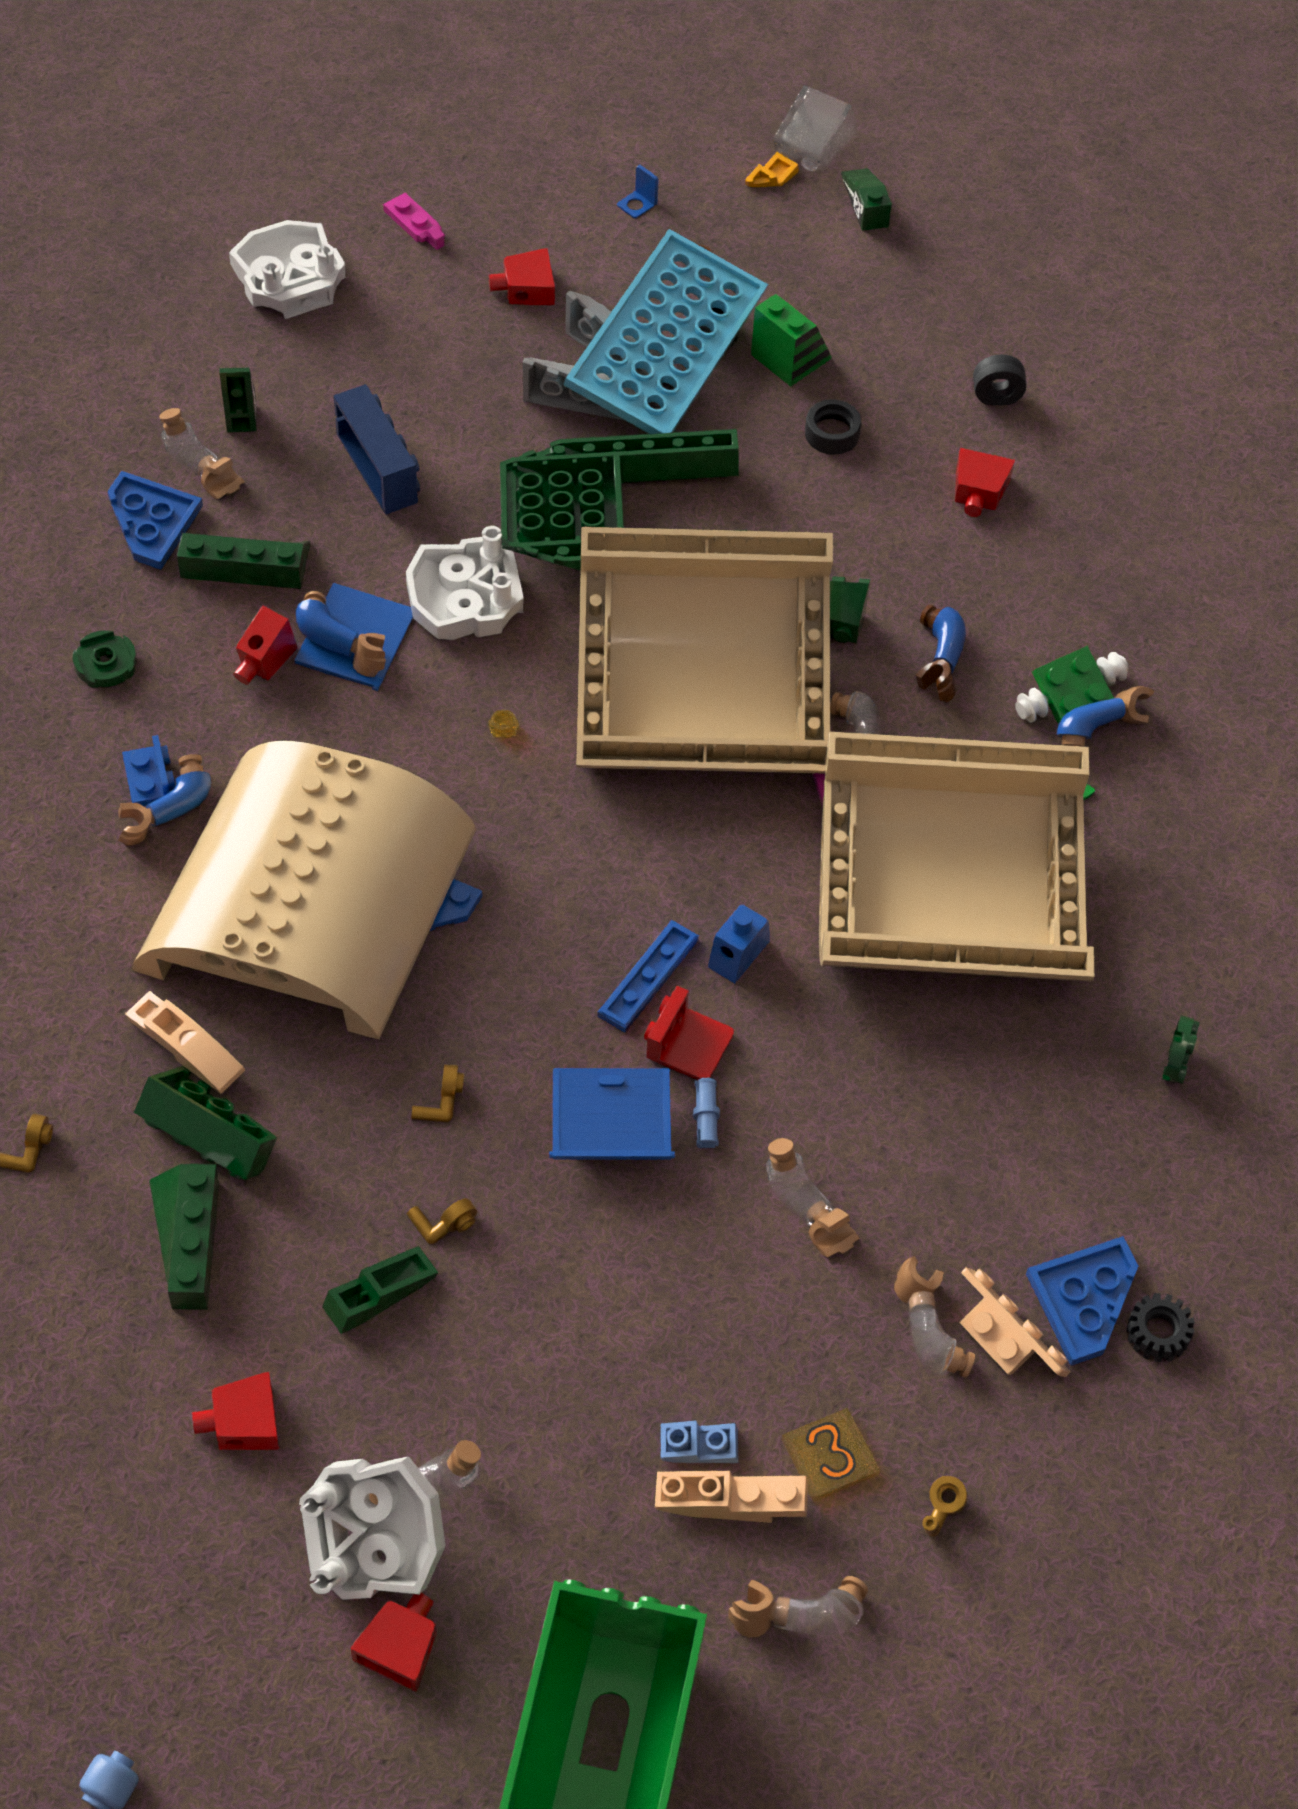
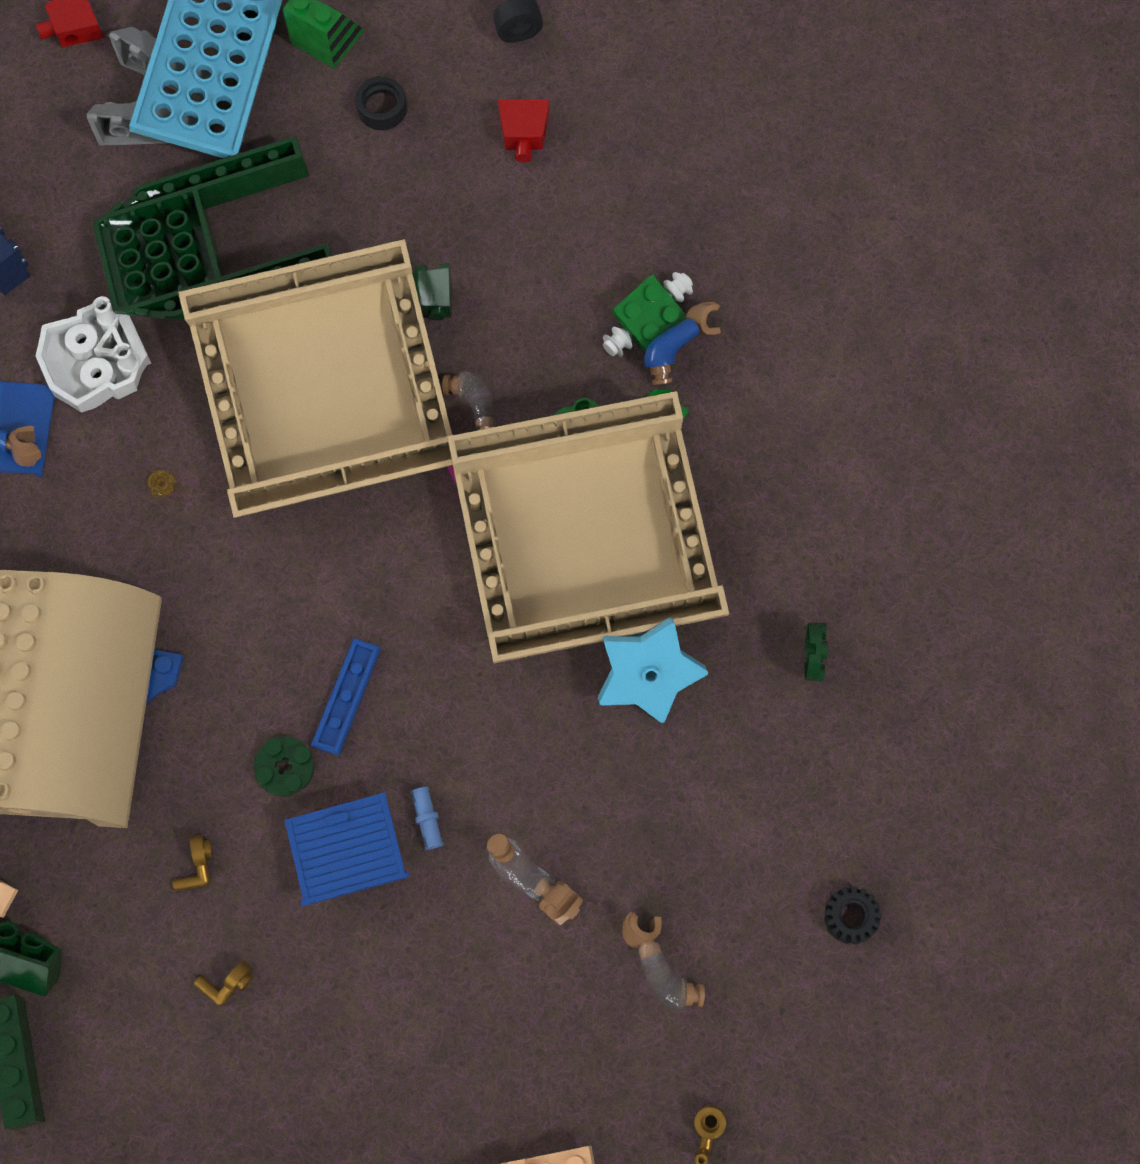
camera: 10 degrees left, 15 degrees up
(378, 1288) = (186, 1064): dark green slope -> none
(559, 1009) = (291, 781): none -> dark green plate
(686, 1038) = (394, 751): red bracket -> none
(699, 1444) = (492, 1130): medium blue slope -> none
(743, 934) = (418, 648): blue torso -> none
(830, 1454) = (604, 1109): clear yellow tile -> none
(951, 634) = (532, 291): piece -> none
(979, 996) = (648, 670): none -> medium azure plate
(1003, 1332) = (725, 955): light nougat bracket -> none
(1085, 1295) = (784, 902): blue plate -> none

